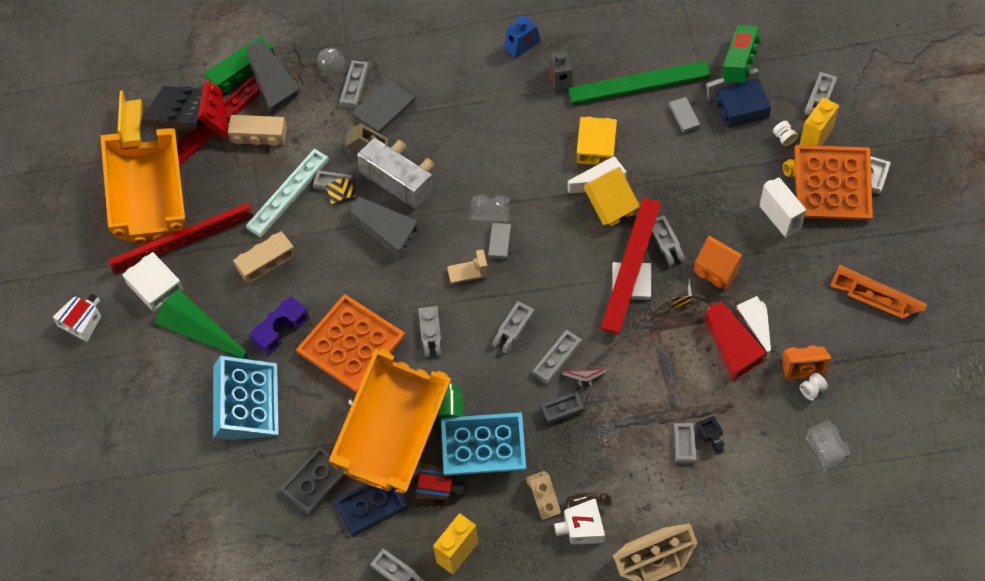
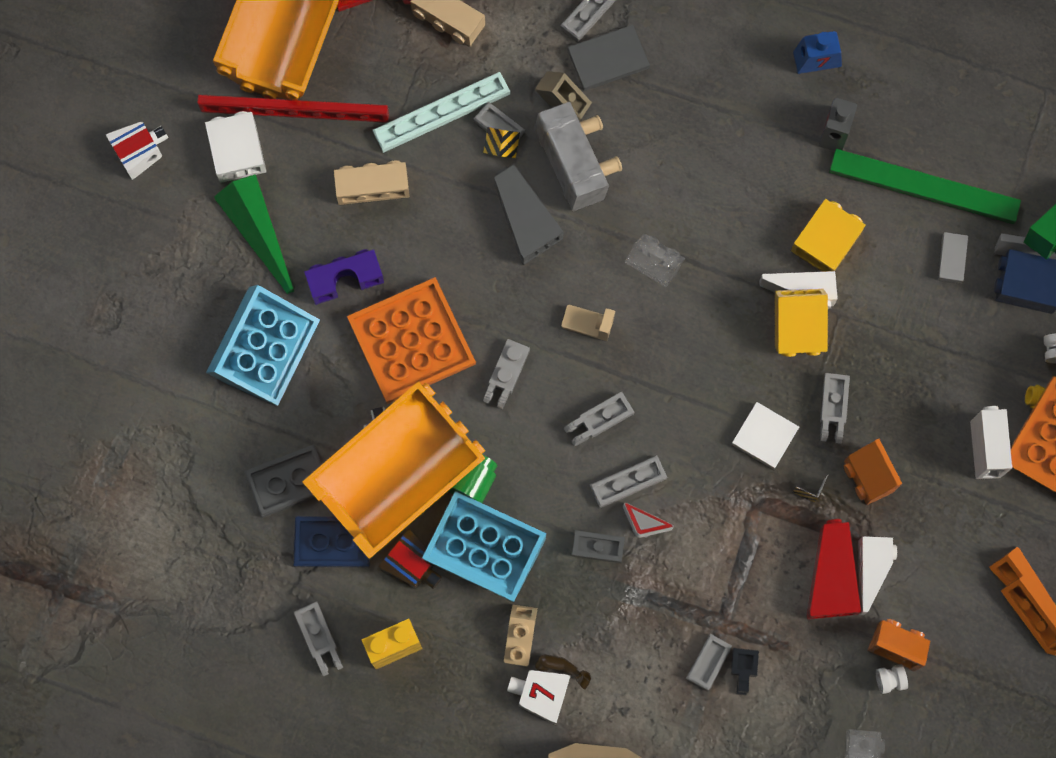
camera: 25 degrees right, 15 degrees up
(499, 241) = (645, 304): light grey tile -> none
(630, 266) = (773, 419): red tile -> none

